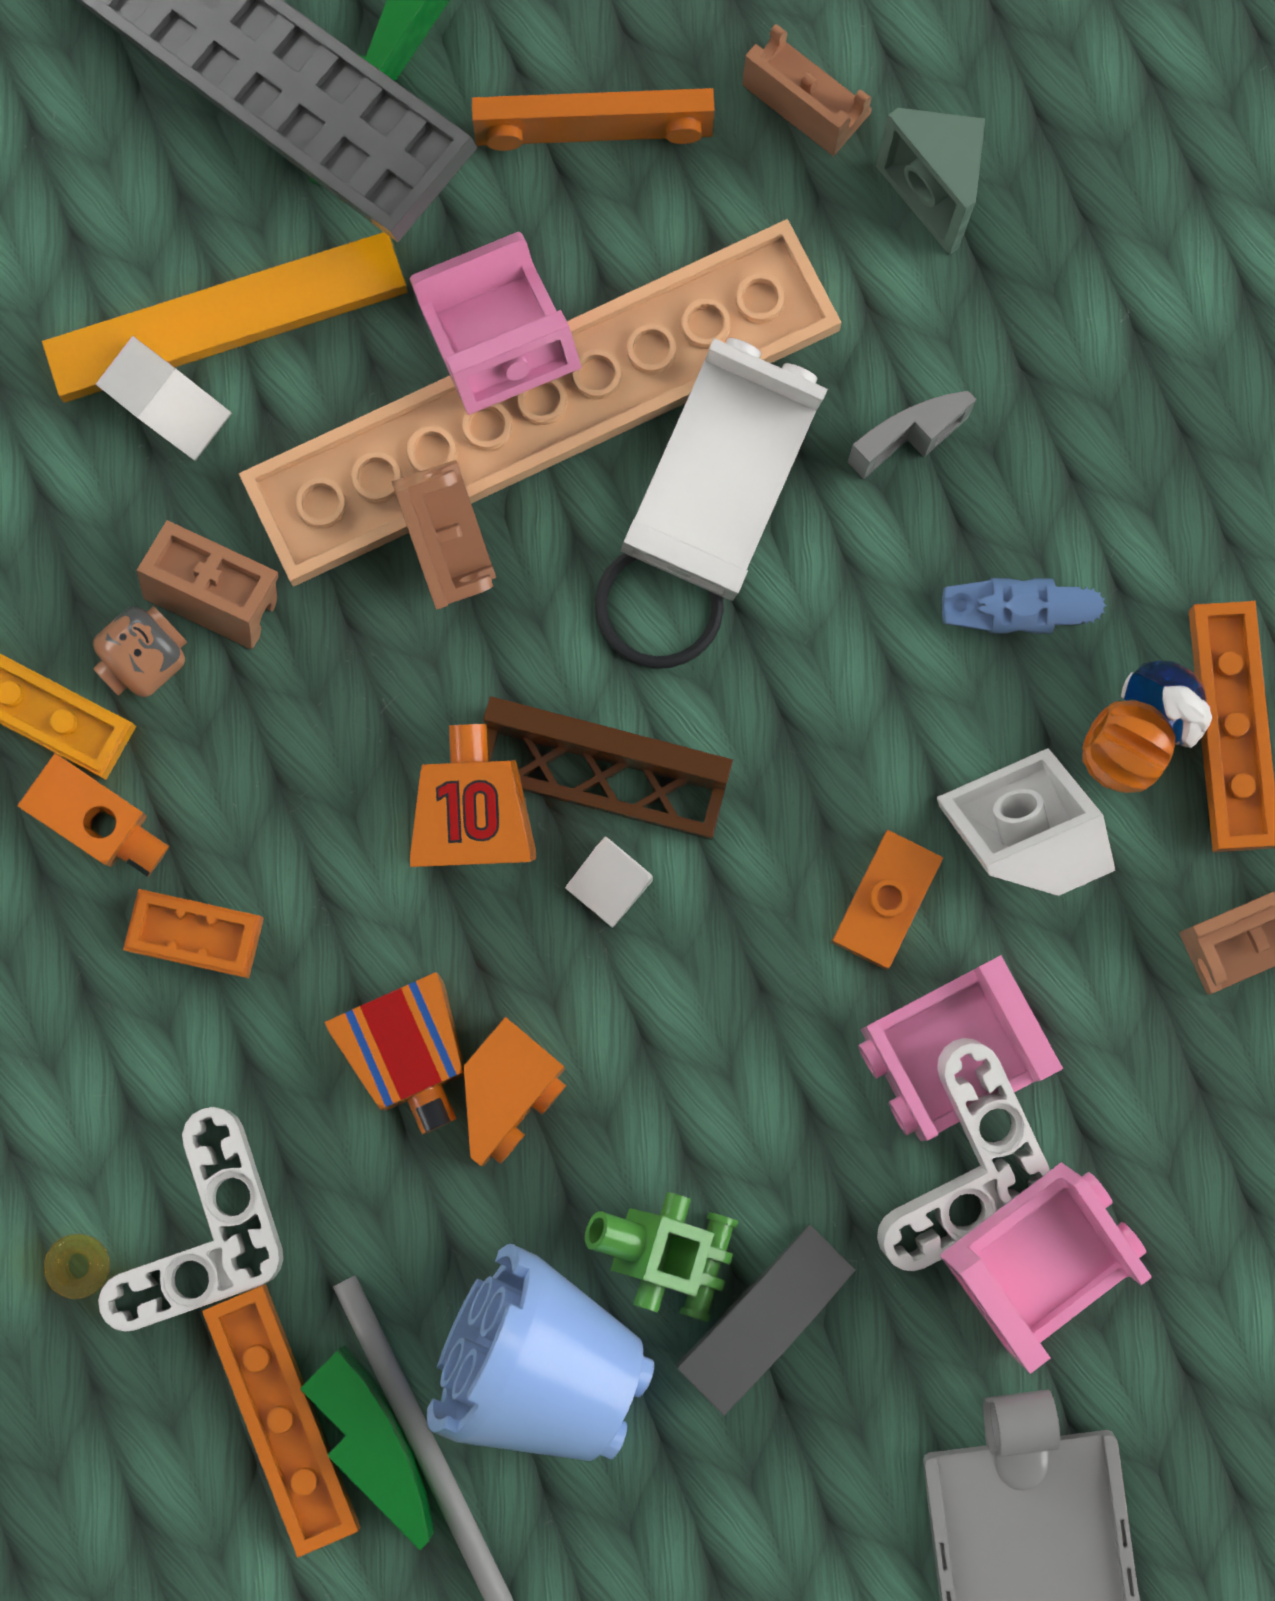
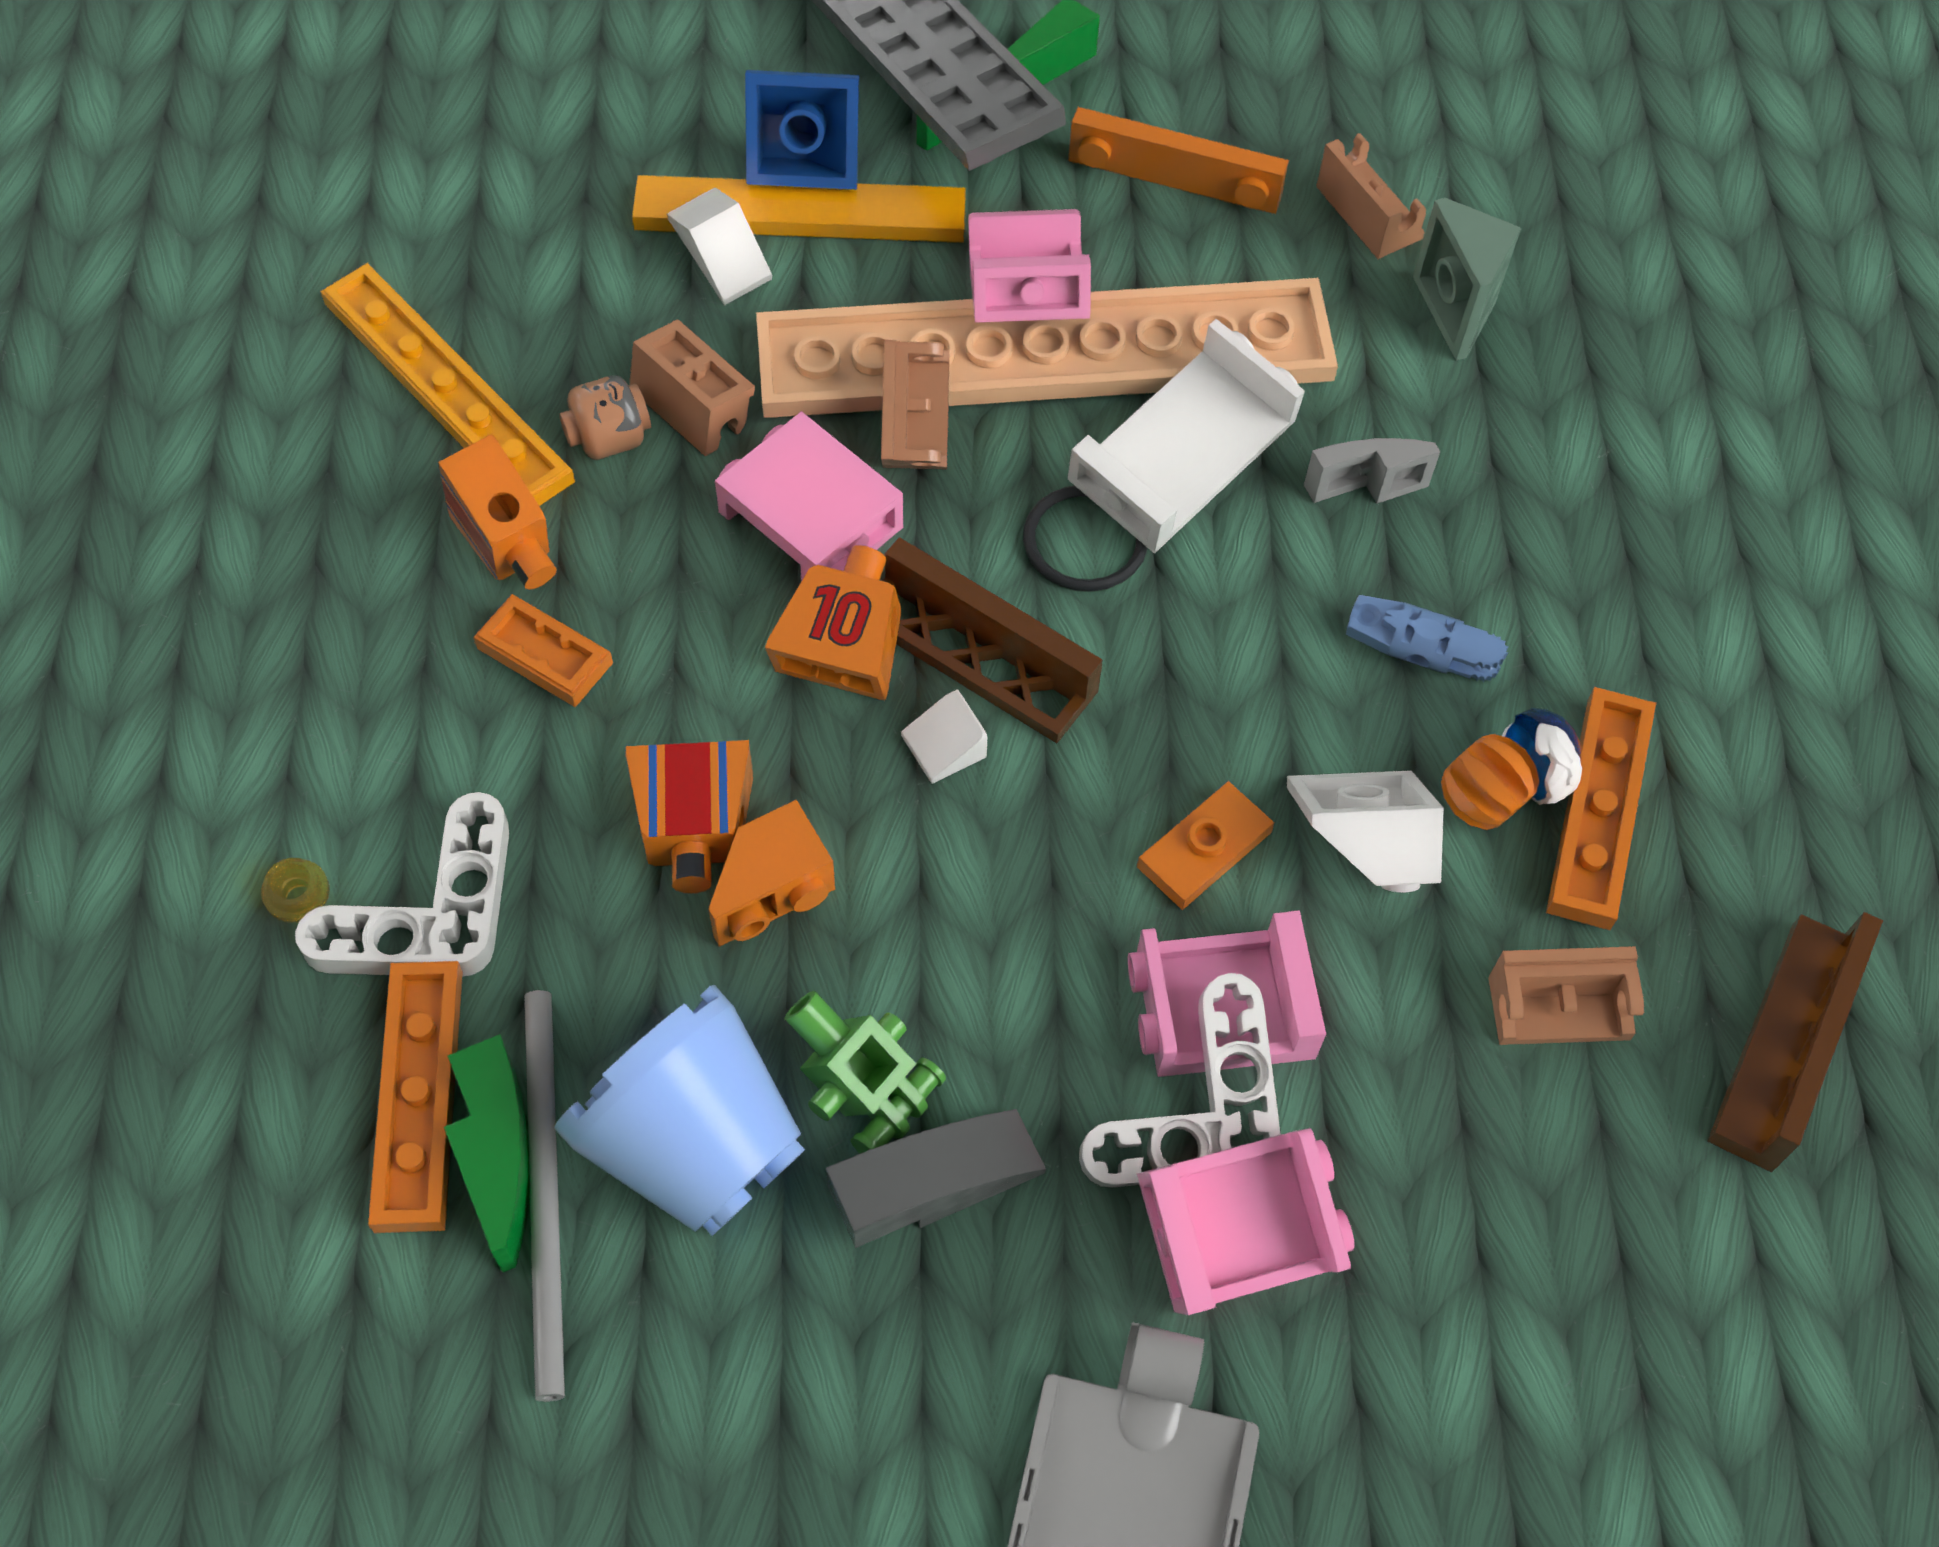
camera: 20 degrees right, 20 degrees down
(200, 246) = (801, 129): none -> blue slope
(380, 674) = (810, 495): none -> bright pink panel

